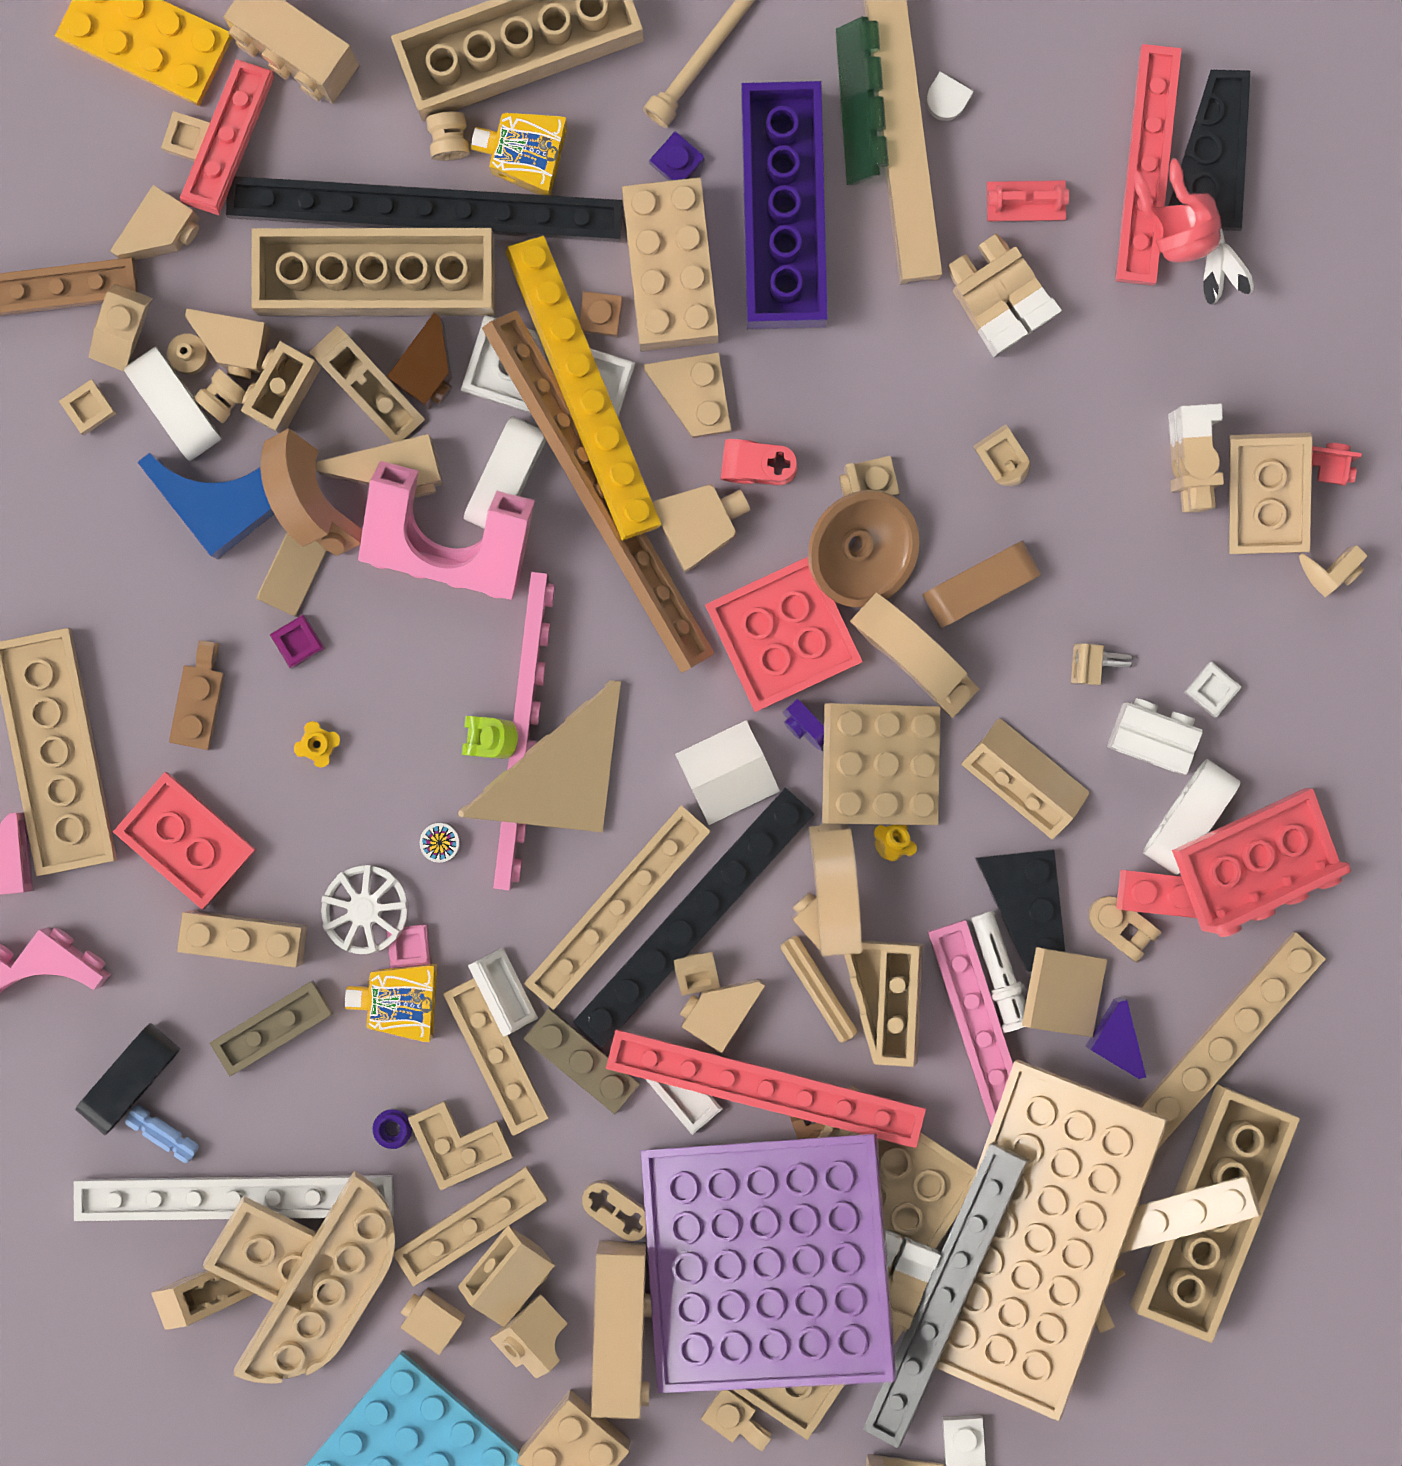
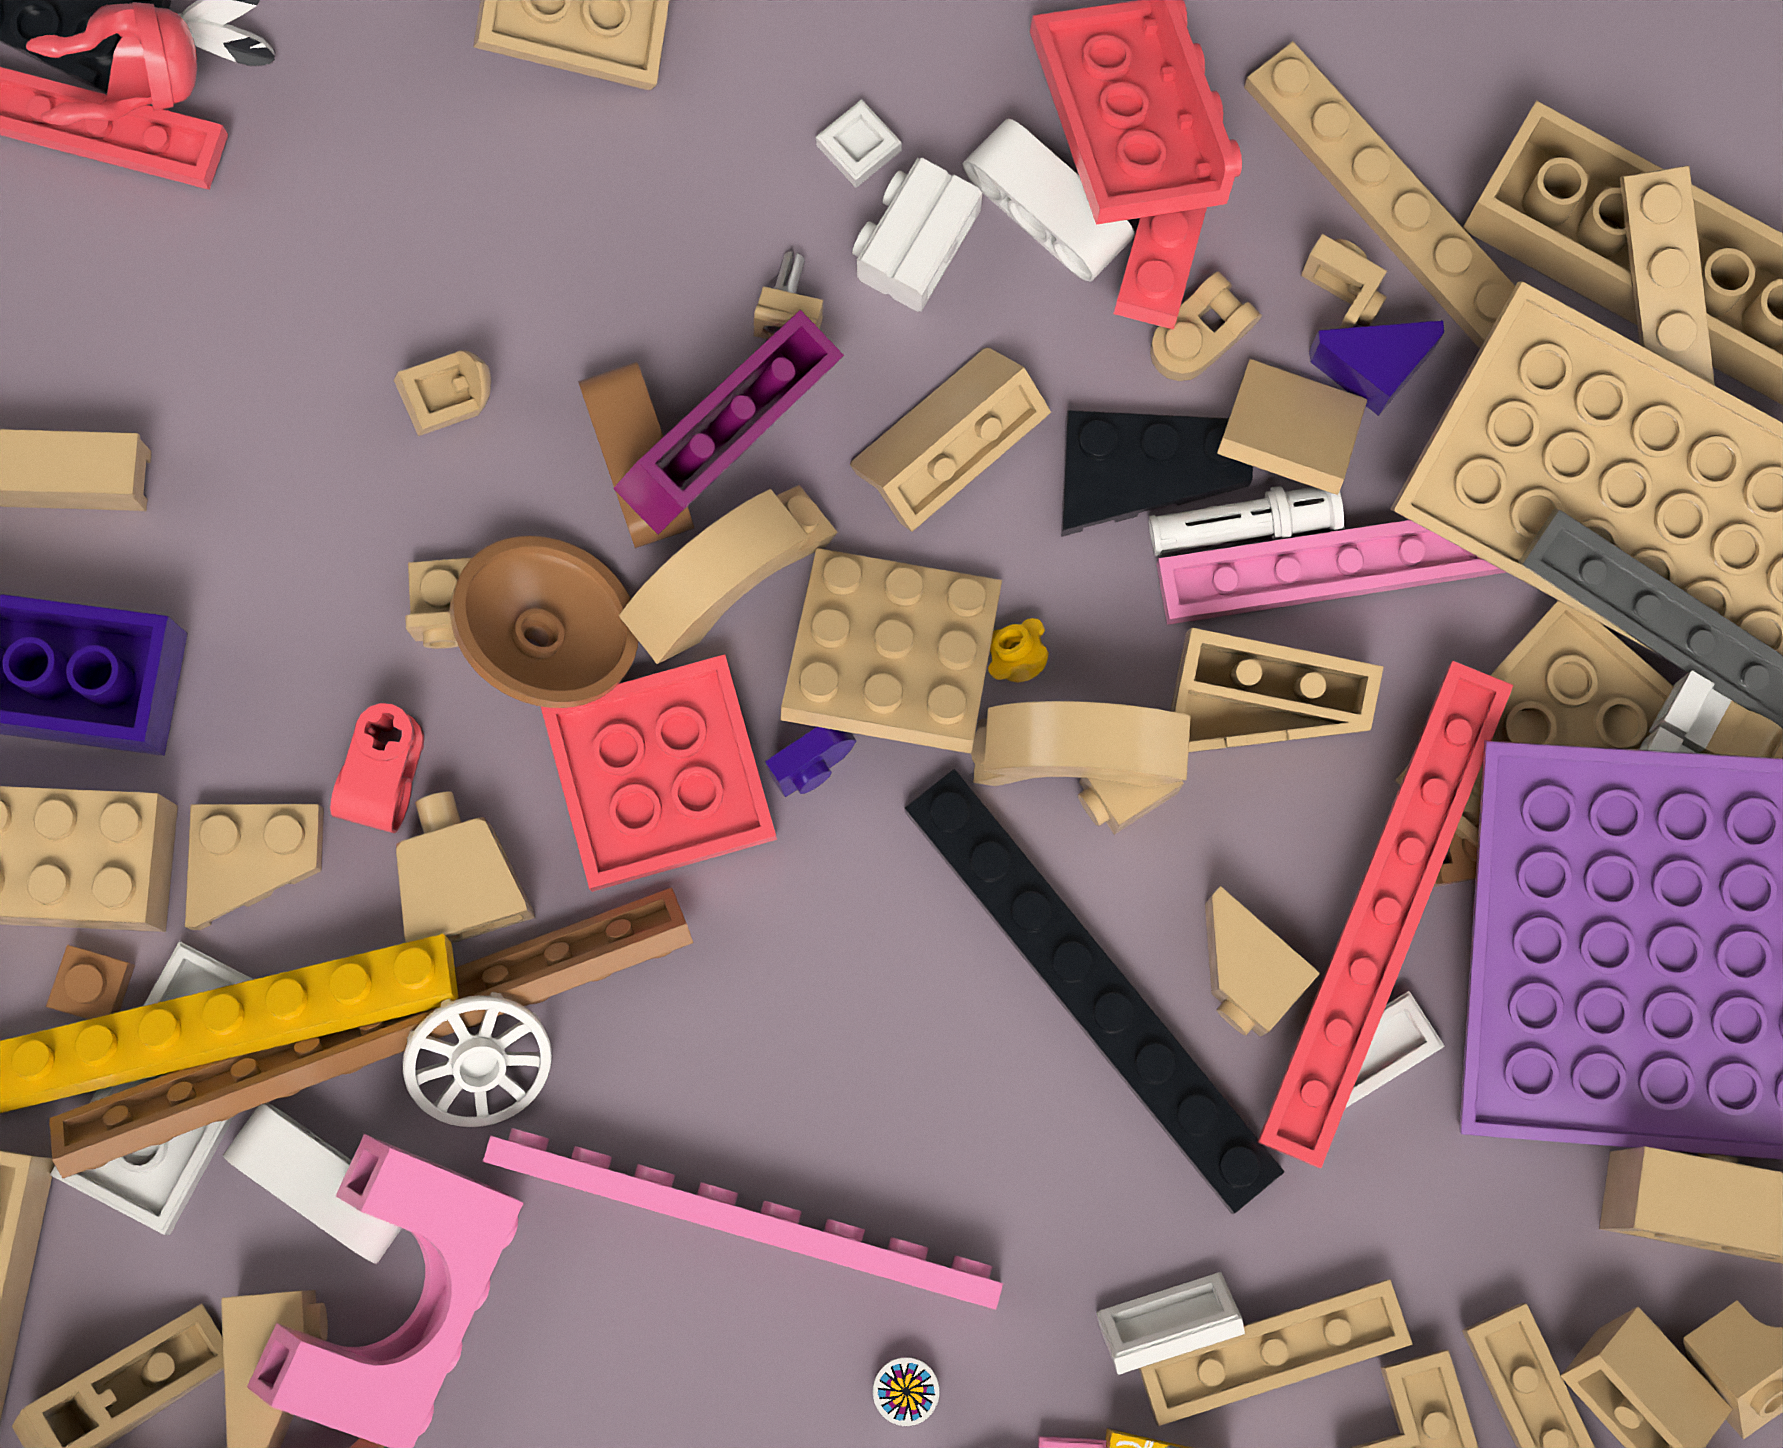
camera: 80 degrees left, 10 degrees down
(425, 365) = (111, 1289): reddish brown slope -> none
(490, 737) = (744, 1264): lime plate -> none
(562, 776) = (828, 1166): tan tile -> none
(580, 1060) = (1300, 1212): dark tan plate -> none
(590, 556) = (477, 1059): none -> white wheel
(610, 1218) = (1565, 1203): tan beam -> none
(617, 907) = (1058, 1111): tan plate -> none
(696, 973) = (1183, 996): tan plate -> none
(727, 772) = (866, 896): white slope -> none
(818, 989) = (1235, 807): tan axle -> none
(1001, 297) = (195, 354): tan hips -> none
(1005, 641) = (728, 422): none -> magenta brick
(1027, 201) = (57, 297): coral hinge -> none
(1175, 1010) = (1348, 274): none -> tan bracket
(1194, 456) = (495, 104): tan hips -> none

